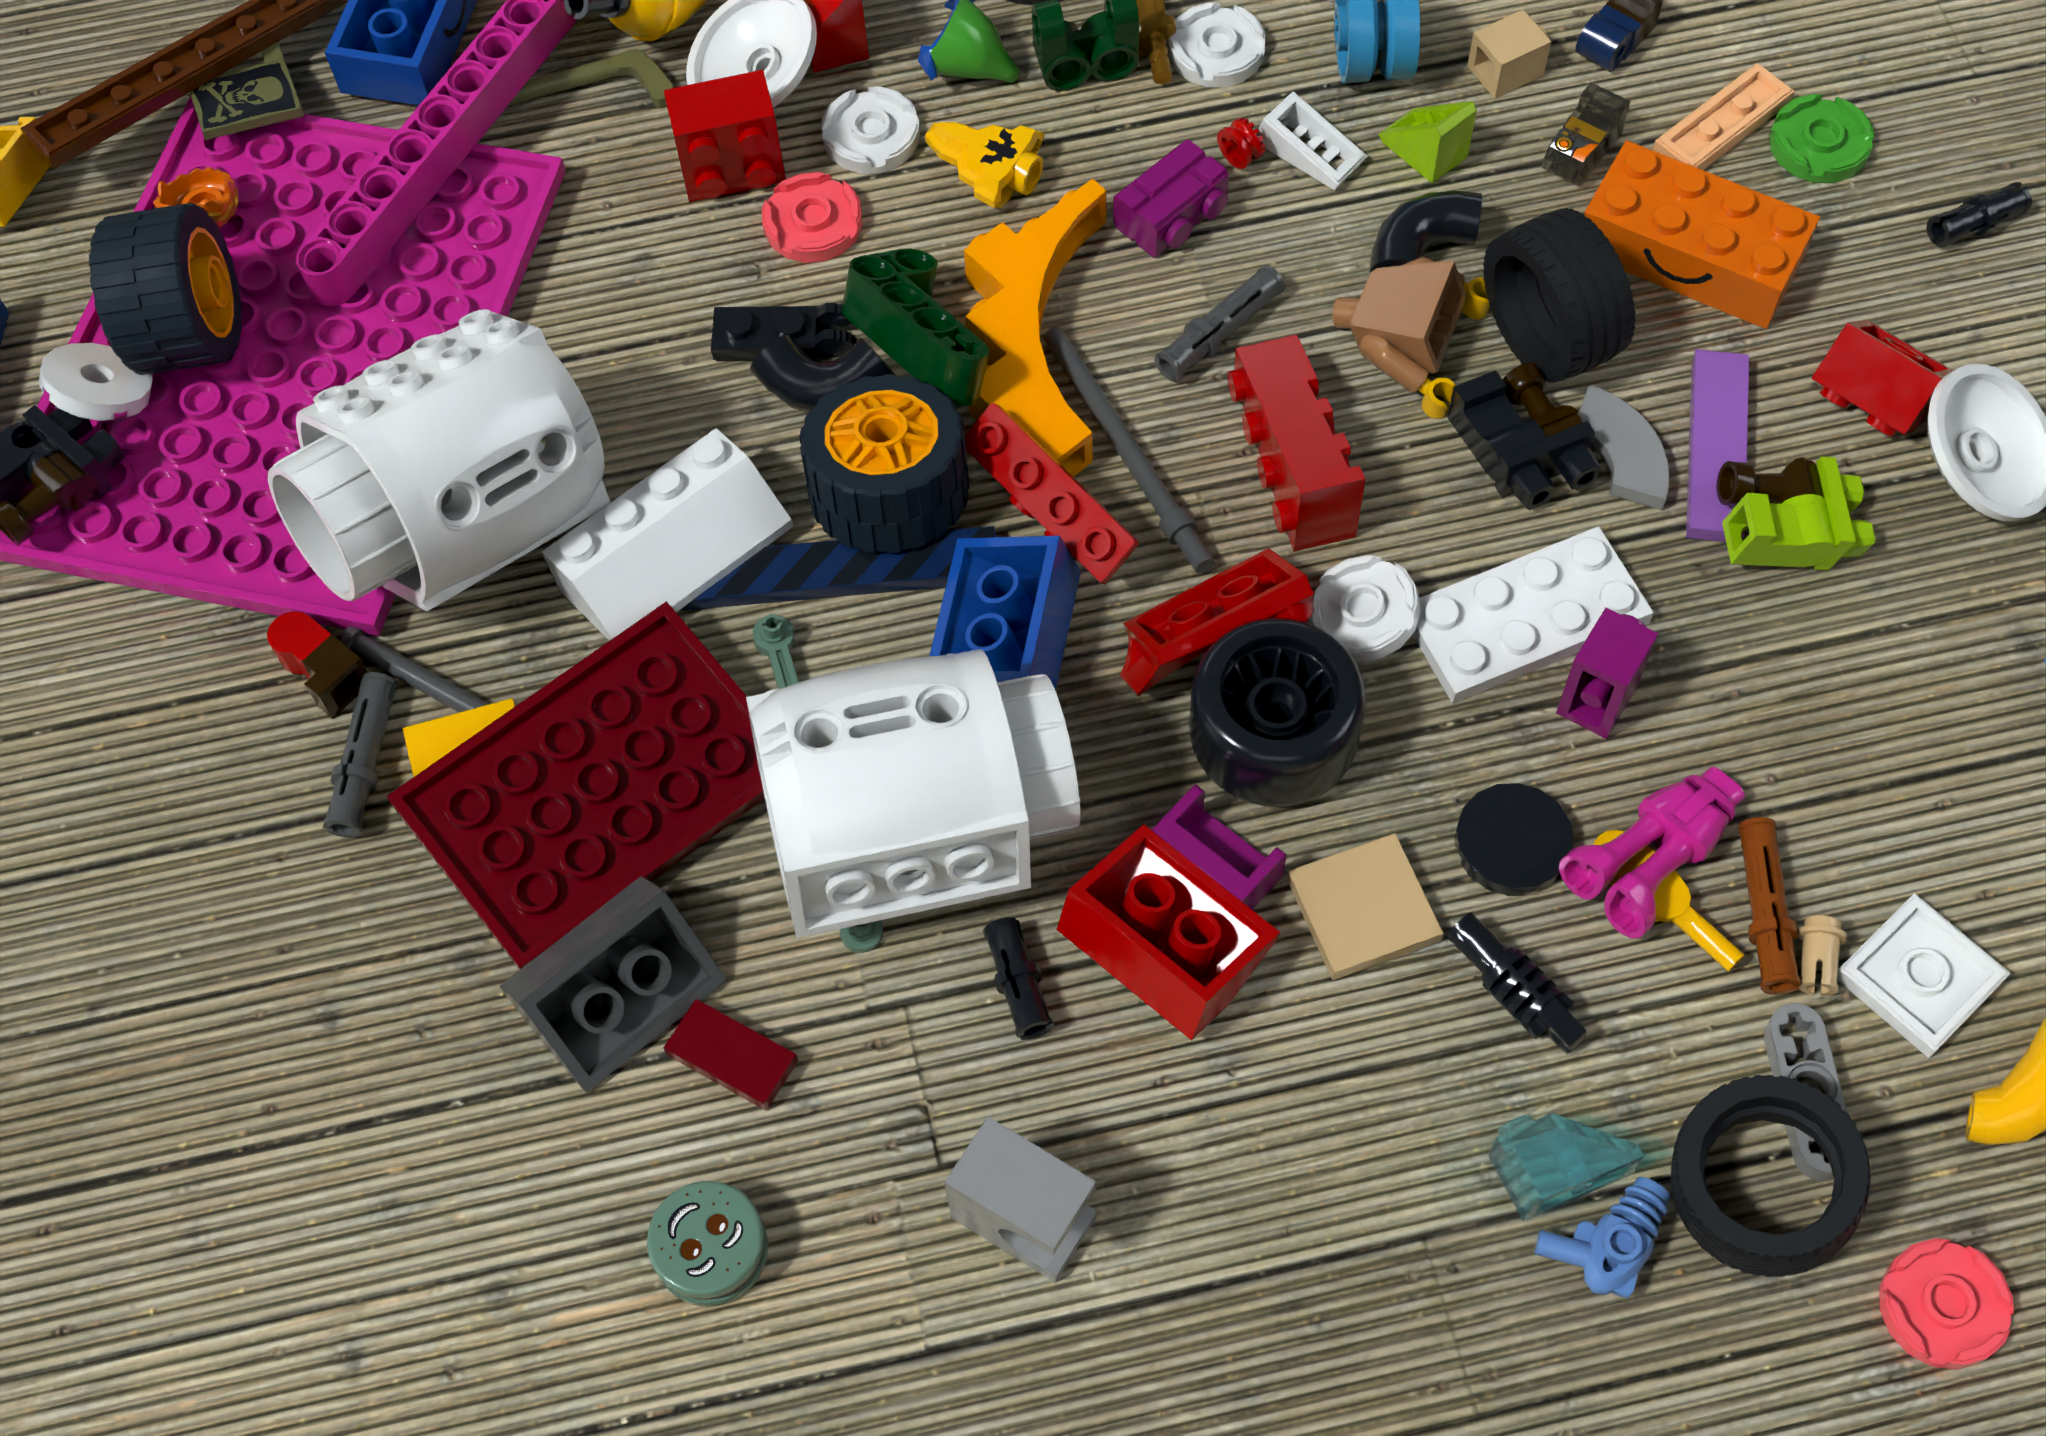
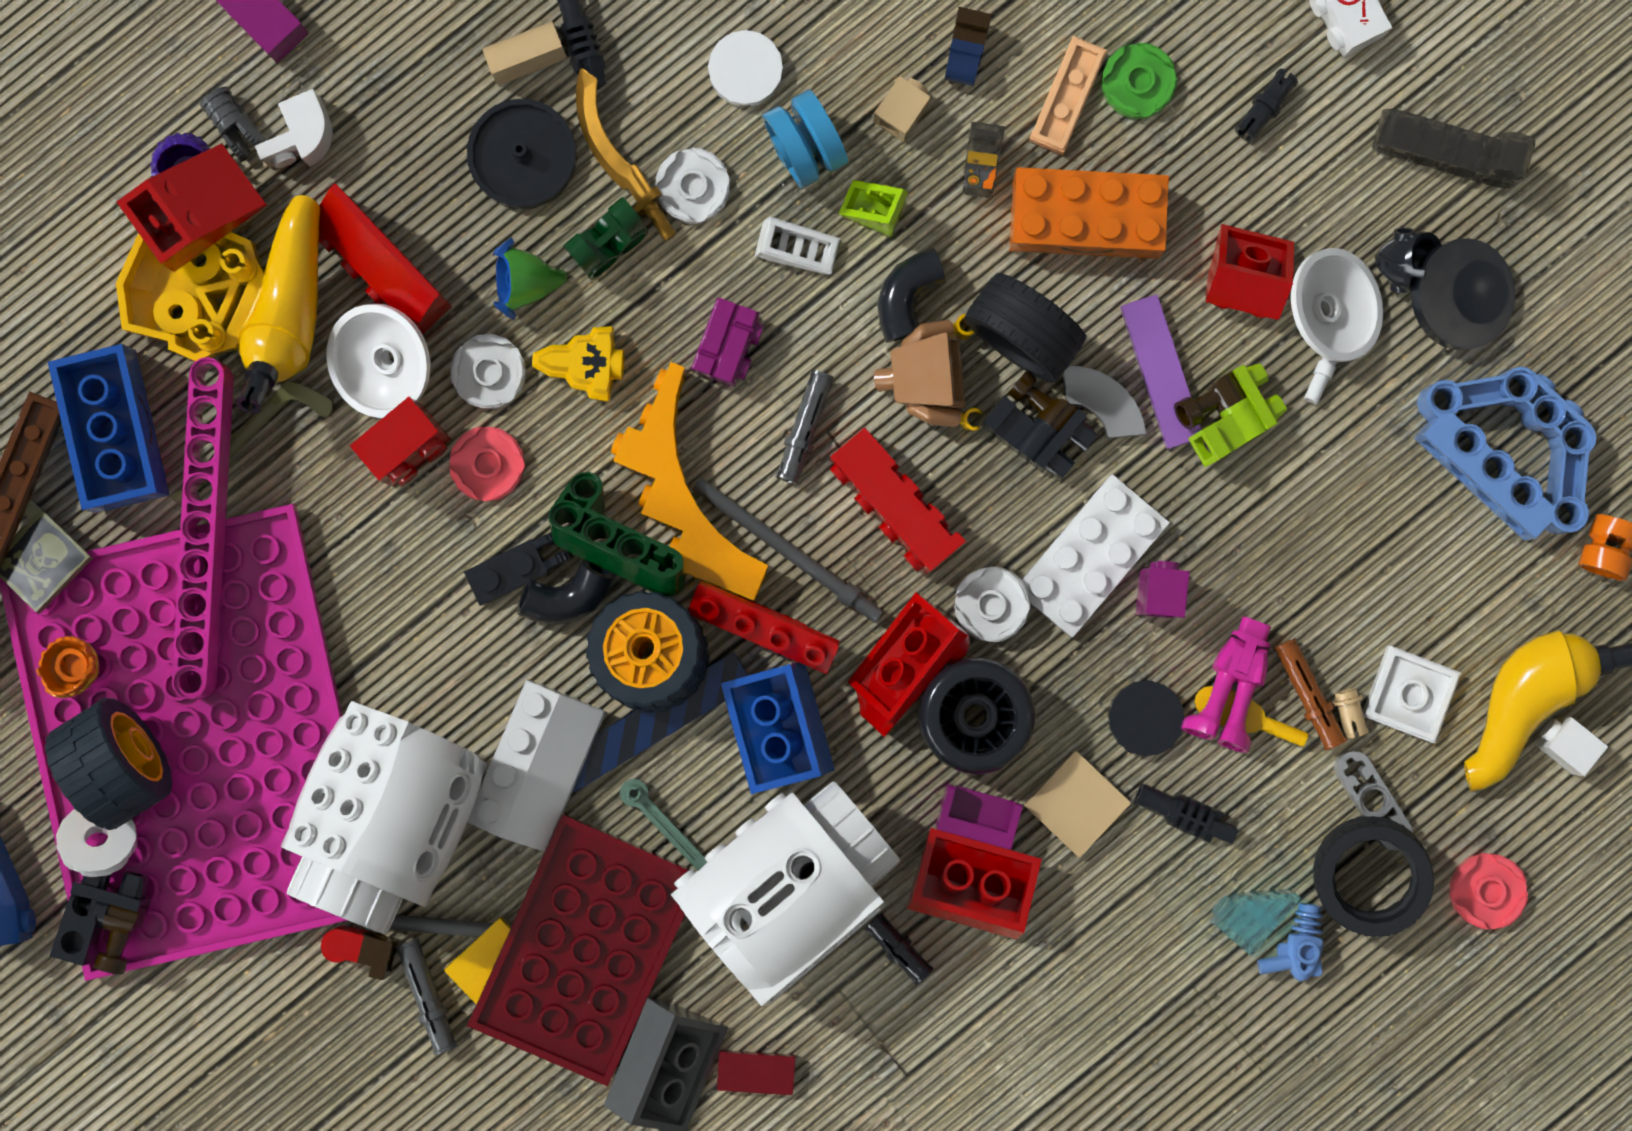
camera: 25 degrees left, 25 degrees up
(1021, 1198) = (972, 1090): light grey piece -> none
(1240, 143) = (751, 272): red bush -> none
(1940, 532) = (1322, 374): none -> white piece

